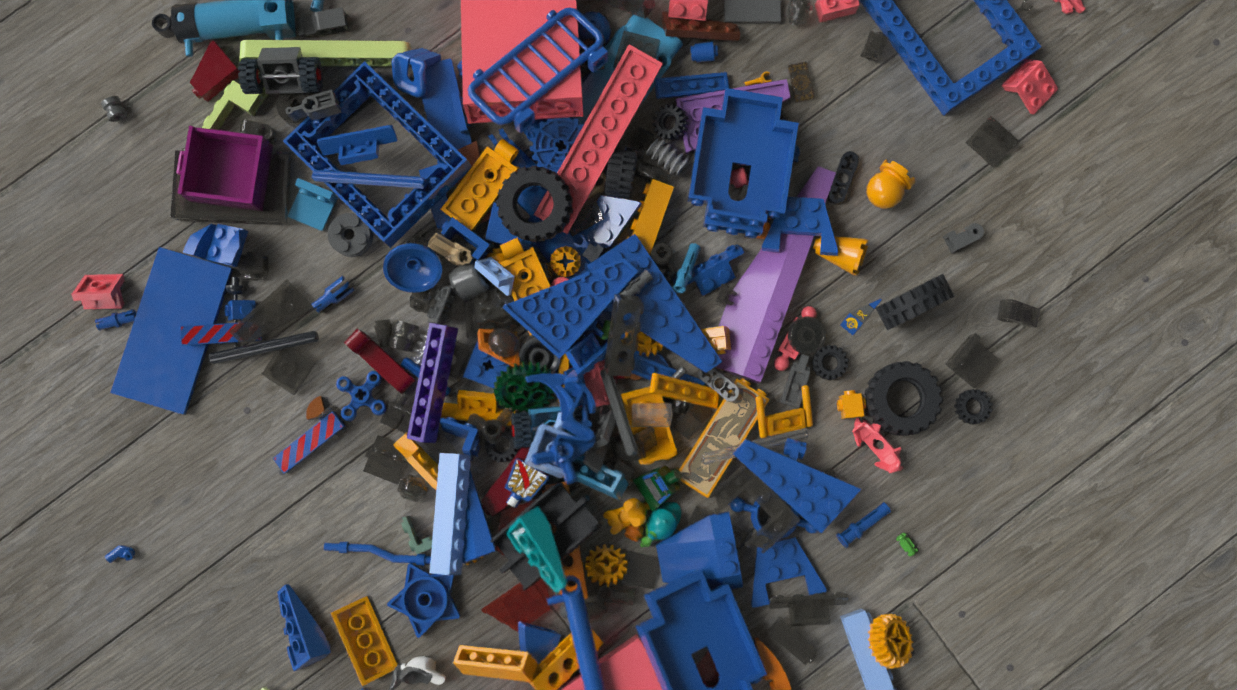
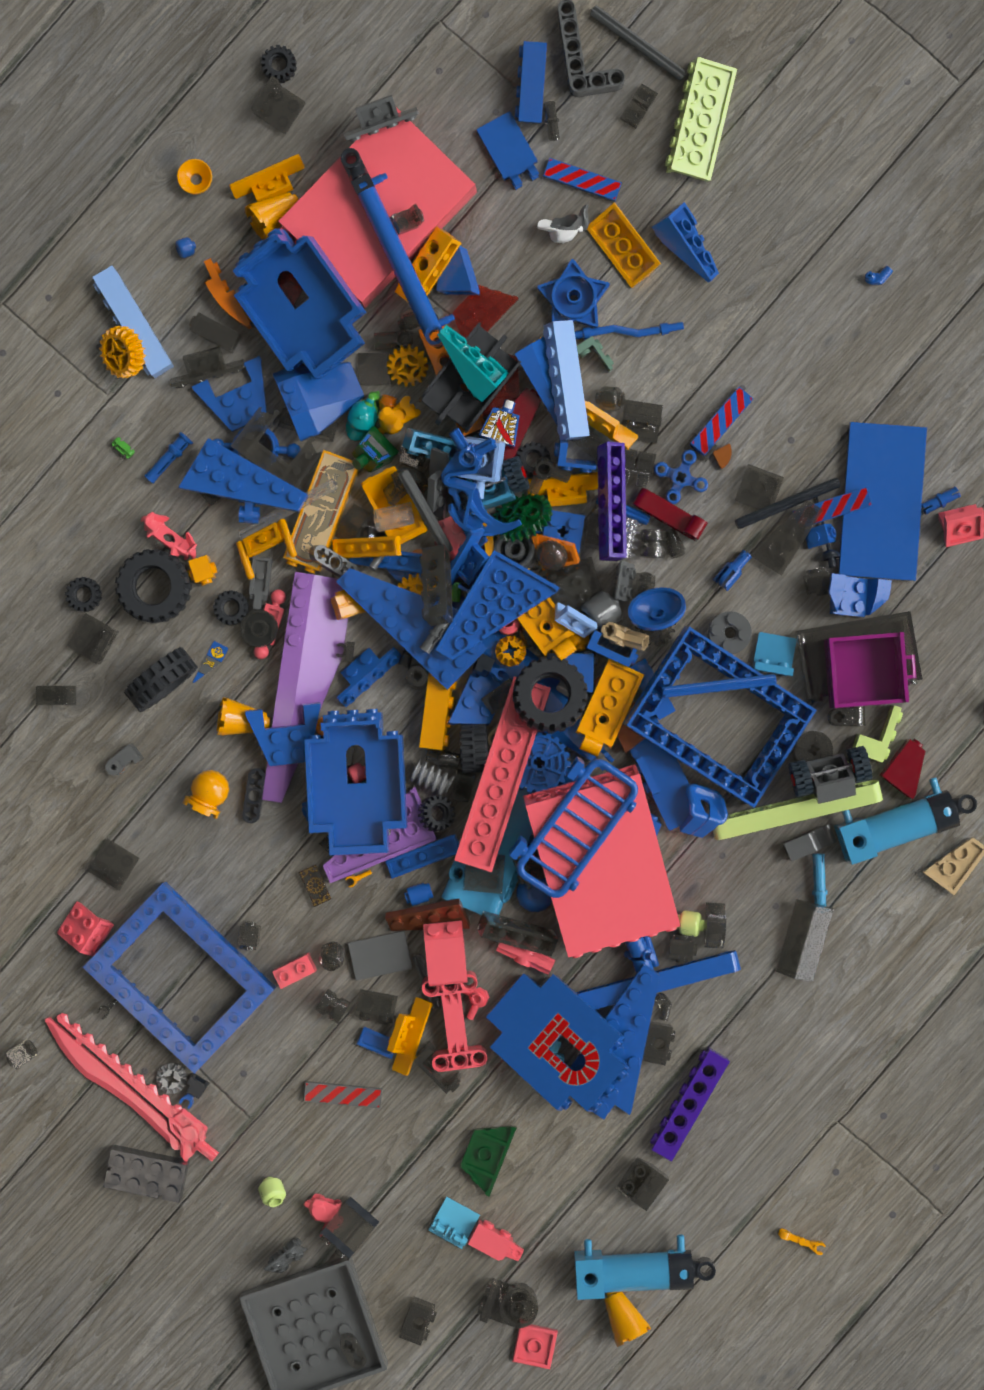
camera: 170 degrees right, 5 degrees up
(316, 106) = (780, 753): dark grey piece -> none
(357, 145) = (737, 716): blue bracket -> none
(495, 663) = (491, 250): light orange brick -> none
(685, 273) = (390, 662): dark azure pin -> none

